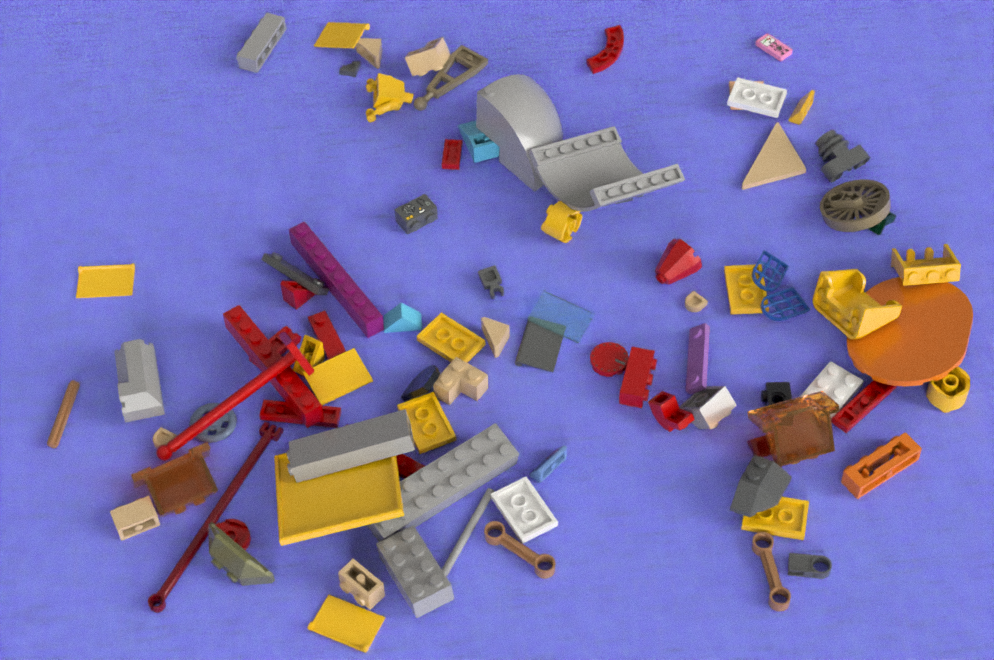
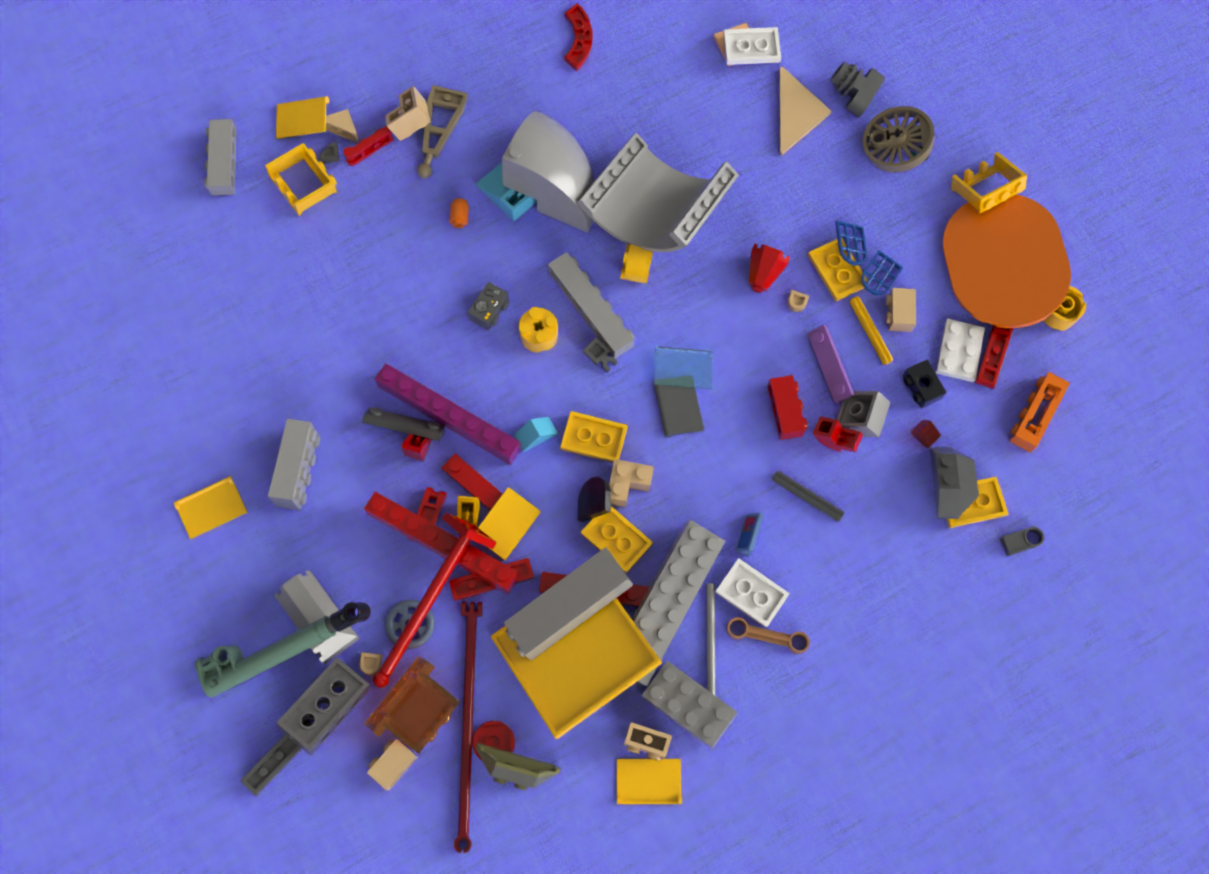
camera: 30 degrees left, 20 degrees up
(49, 476) = (271, 764): none -> dark grey plate
(51, 392) = (225, 672): none -> sand green piece
(63, 414) = (255, 685): medium nougat axle -> none
(104, 448) = (325, 720): none -> flat silver brick
(187, 268) = (294, 464): none -> light grey brick
(312, 61) = (291, 158): none -> yellow window
(387, 95) = (388, 174): yellow torso -> none
(395, 69) = (368, 146): none -> red plate
(431, 140) = (459, 213): none -> orange brick
(448, 244) = (547, 327): none -> yellow brick
(452, 154) = (487, 221): red plate -> none
(495, 334) = (634, 414): tan slope -> none
(504, 242) = (590, 305): none -> light grey brick
(609, 359) = (749, 396): red tile -> none
(619, 454) = (808, 496): none -> dark grey axle
(751, 347) = (871, 330): none -> yellow axle
(771, 571) = (994, 561): medium nougat piece -> none
(788, 339) = (901, 309): none -> tan brick
(797, 427) = (958, 405): clear orange windscreen -> none
(802, 108) = (795, 40): yellow slope -> none
(846, 305) = (945, 255): yellow windscreen -> none

